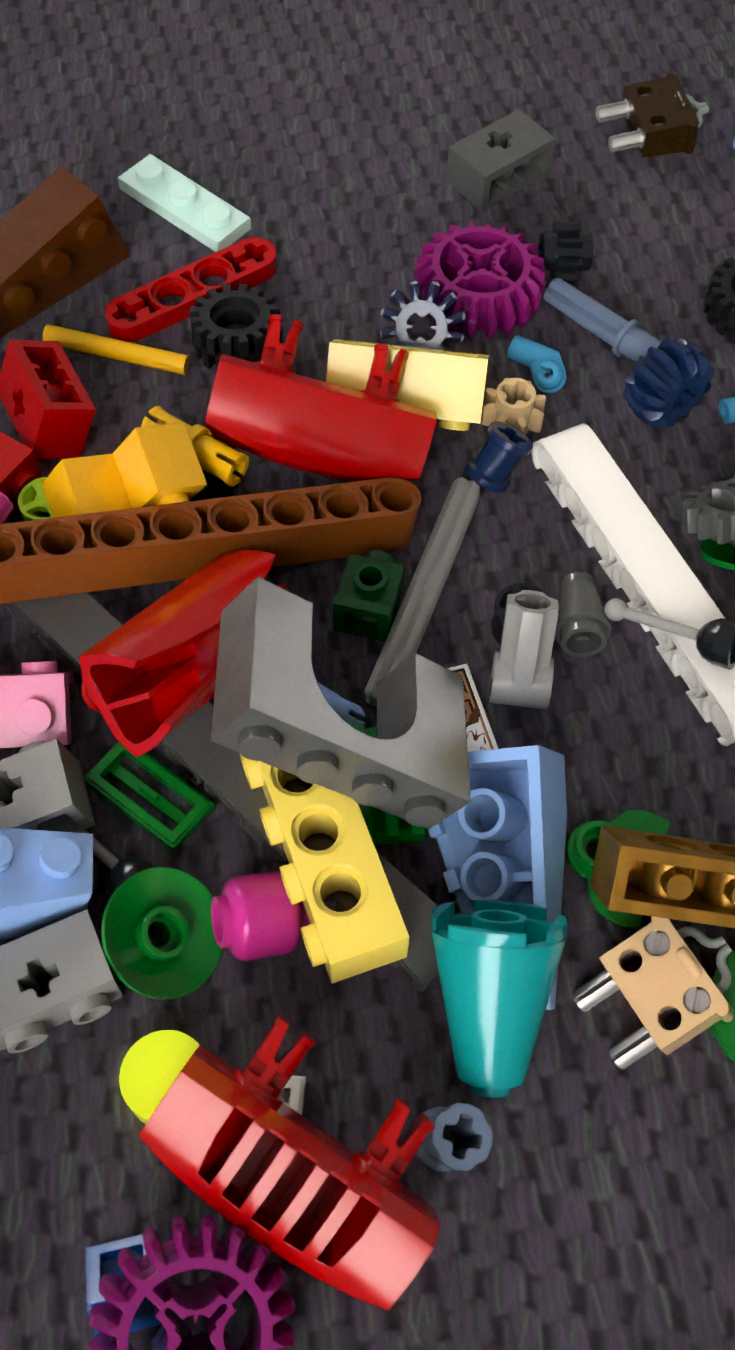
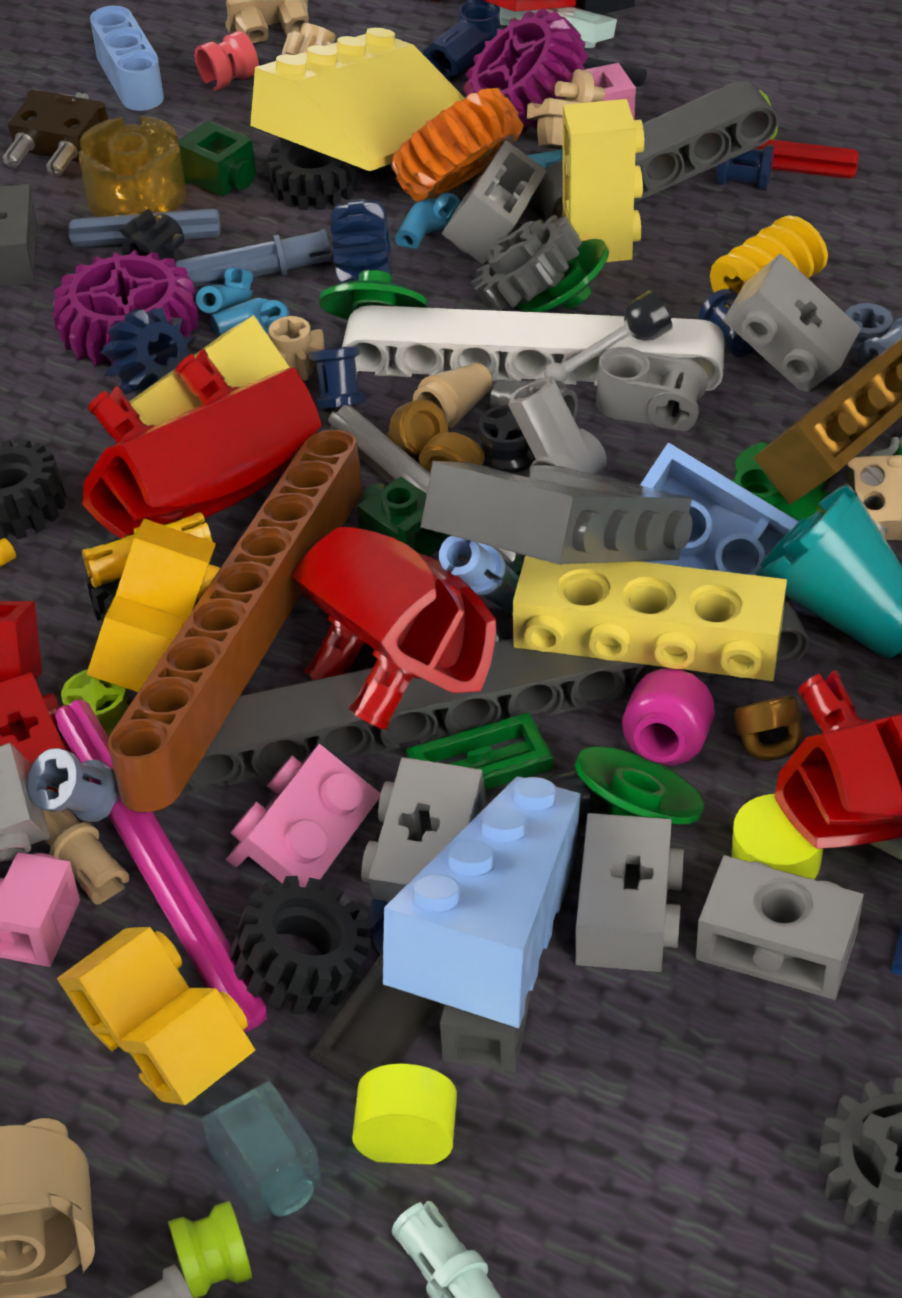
camera: 55 degrees left, 15 degrees down
(43, 1093) = (779, 926): none -> light grey brick
(308, 1001) = (766, 716): none -> pearl gold tile
(460, 590) = (451, 448): none -> pearl gold tile
(484, 547) = (415, 425): none -> pearl gold tile
(550, 548) = (456, 390): none -> tan cone
(551, 329) = (231, 293): none -> dark azure arm
(605, 425) = (372, 288): none -> green dish
(606, 249) = (106, 230): none -> sand blue axle
(634, 188) = (132, 167): none -> clear yellow brick
(669, 703) = (645, 390): none -> light grey piece
(701, 243) = (223, 163): none -> dark green brick

